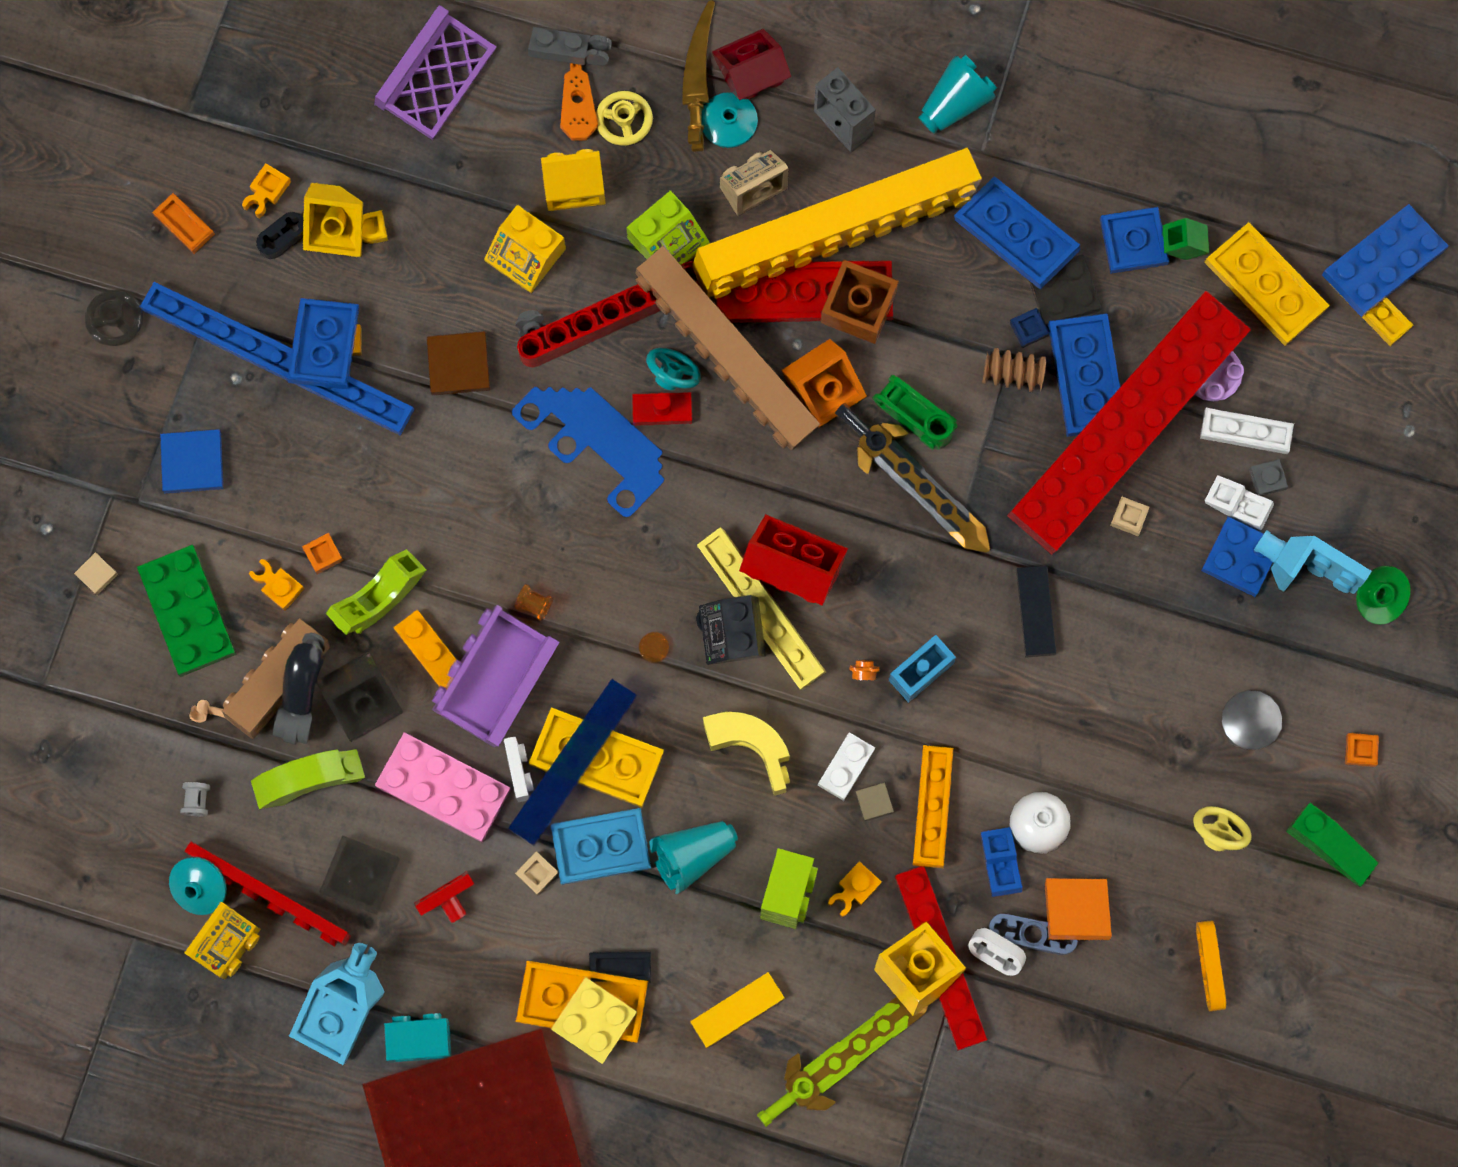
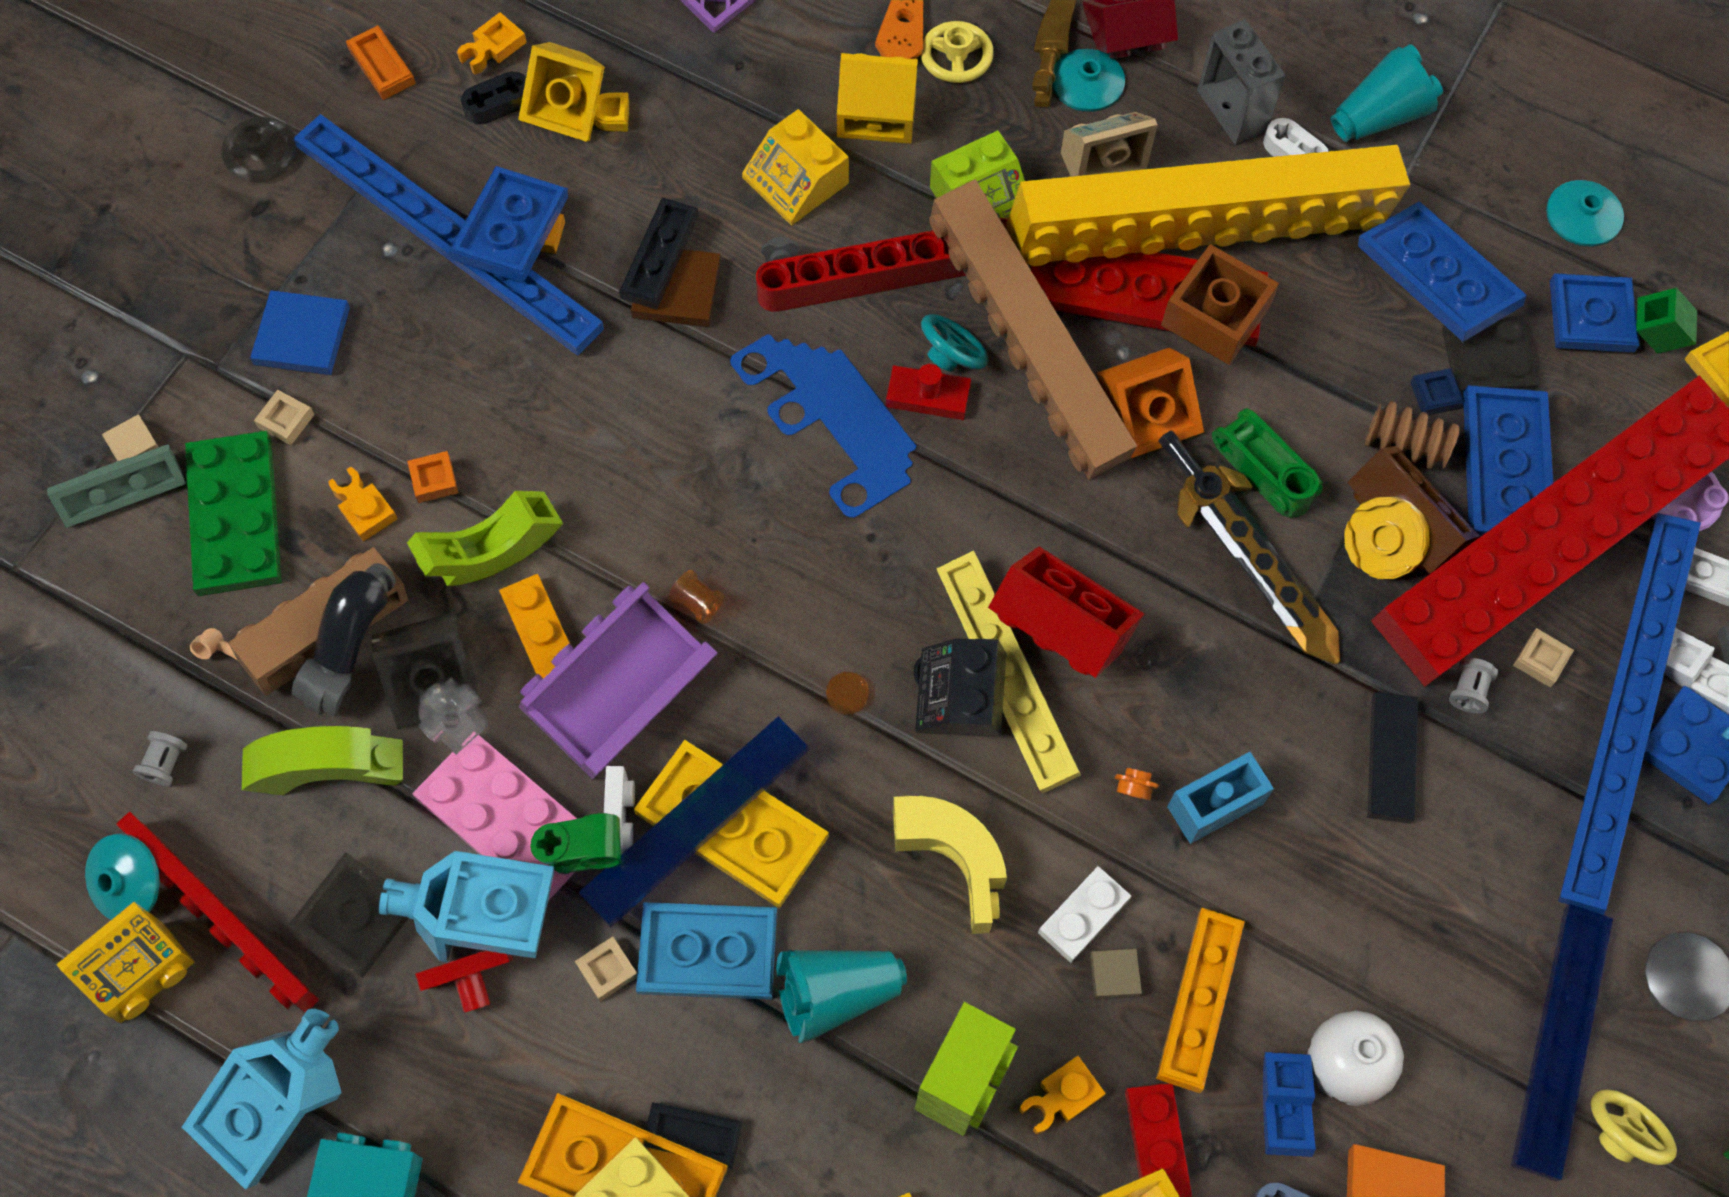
camera: 10 degrees right, 10 degrees down
(99, 610) = (116, 485): none -> sand green plate
(200, 530) = (284, 417): none -> tan tile
(388, 726) = (451, 715): none -> clear brick
(440, 342) = (659, 253): none -> black tile
(442, 852) = (475, 904): none -> medium azure plate
(505, 796) = (579, 843): none -> green piece
(898, 141) = (1298, 140): none -> white beam
(1007, 454) = (1387, 537): none -> yellow tile
(1022, 428) = (1392, 475): none -> reddish brown brick
(1078, 557) = (1473, 686): none -> light grey bush
(1116, 166) = (1584, 225): none -> teal dish
(1174, 780) = (1562, 1043): none -> clear blue tile
(1191, 543) = (1629, 715): none -> blue plate

